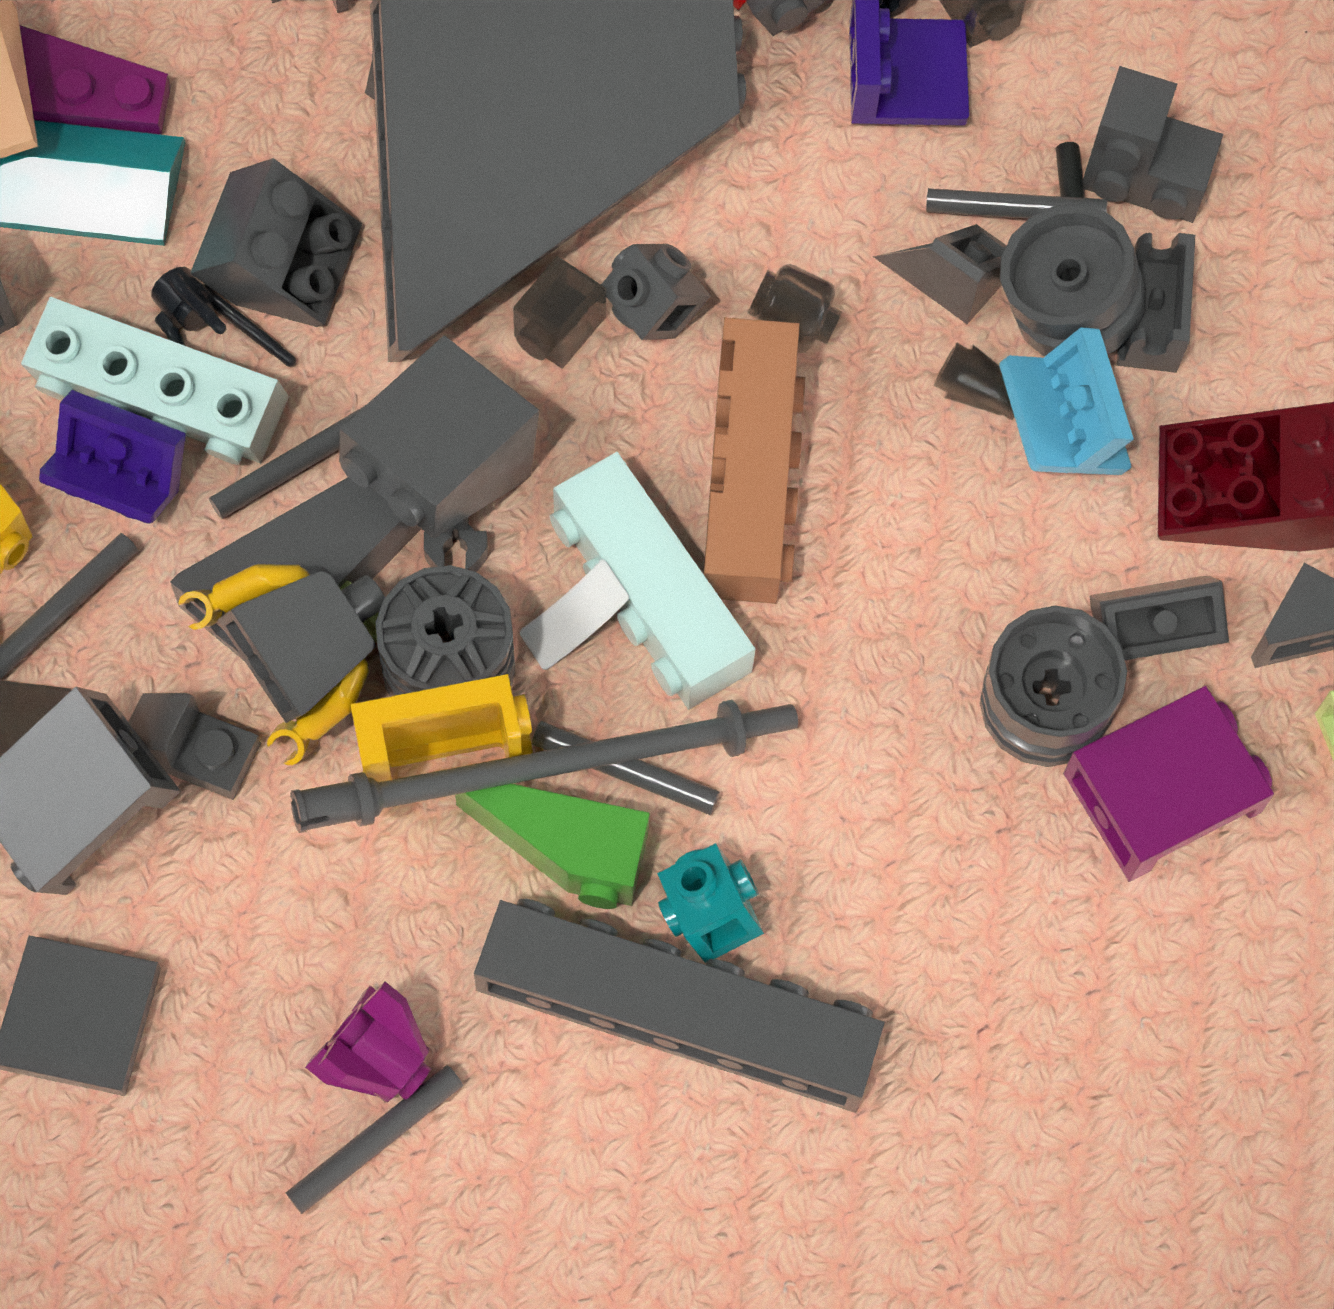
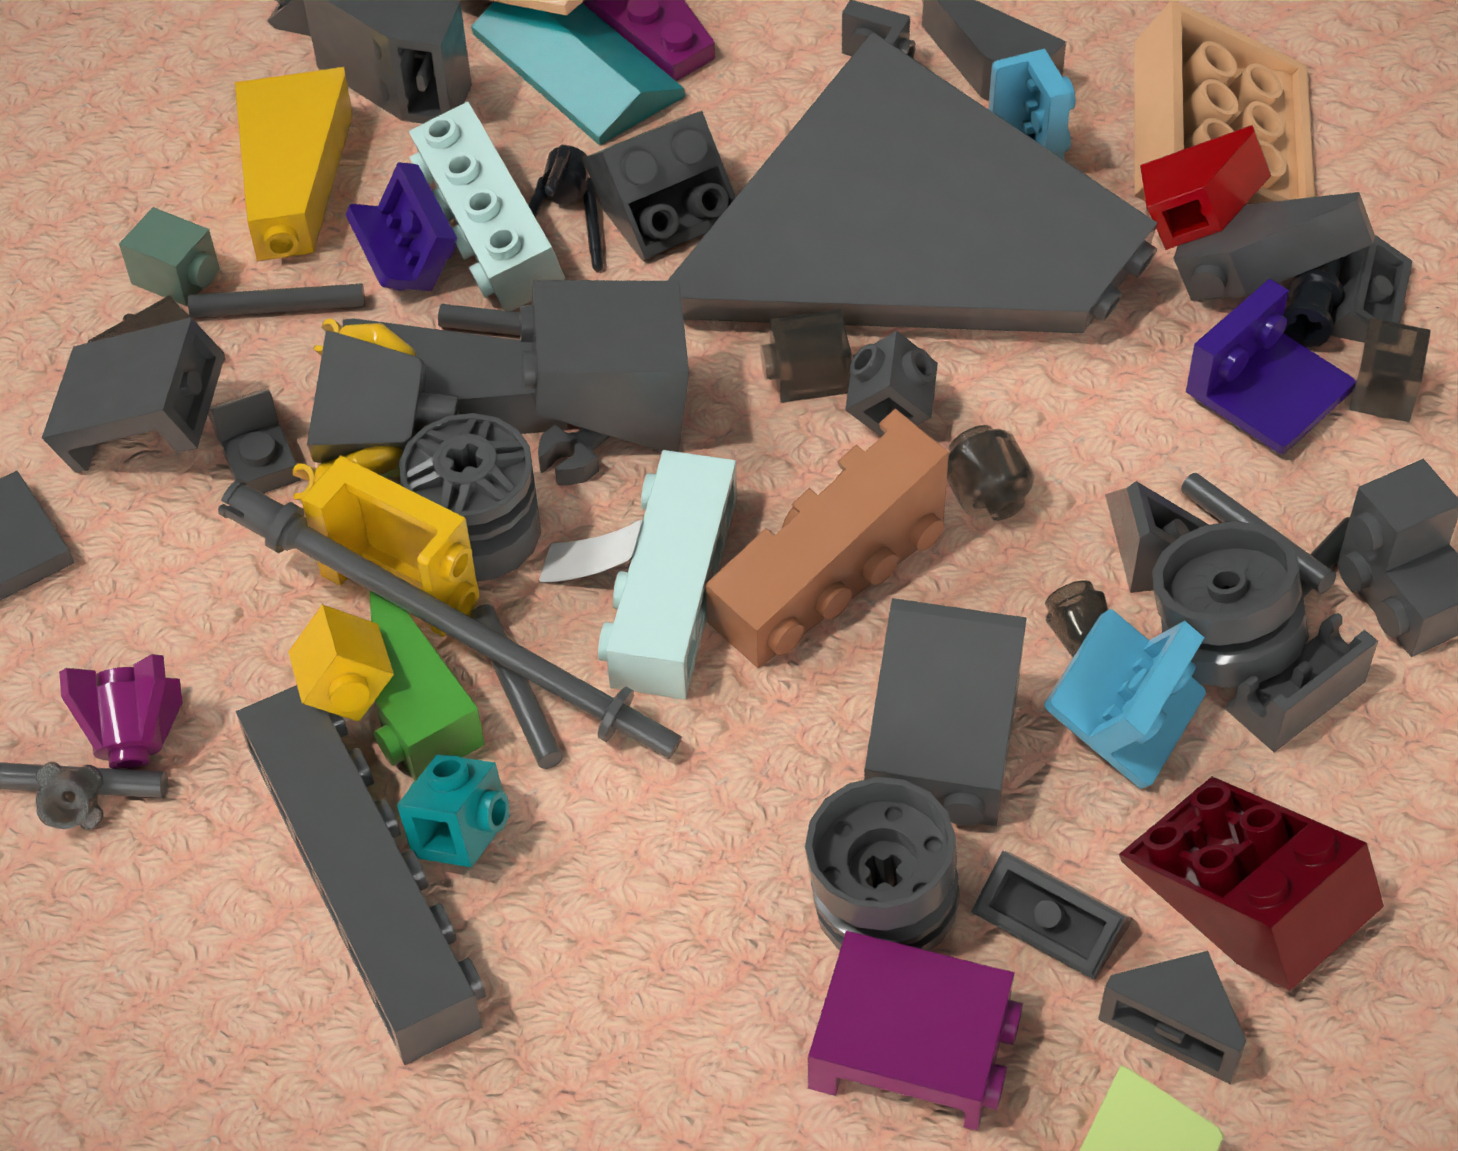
camera: 50 degrees right, 15 degrees down
(403, 1150) = (59, 812): none -> clear smoke plate
(519, 868) = (340, 663): none -> yellow brick
(968, 533) = (947, 705): none -> dark grey slope

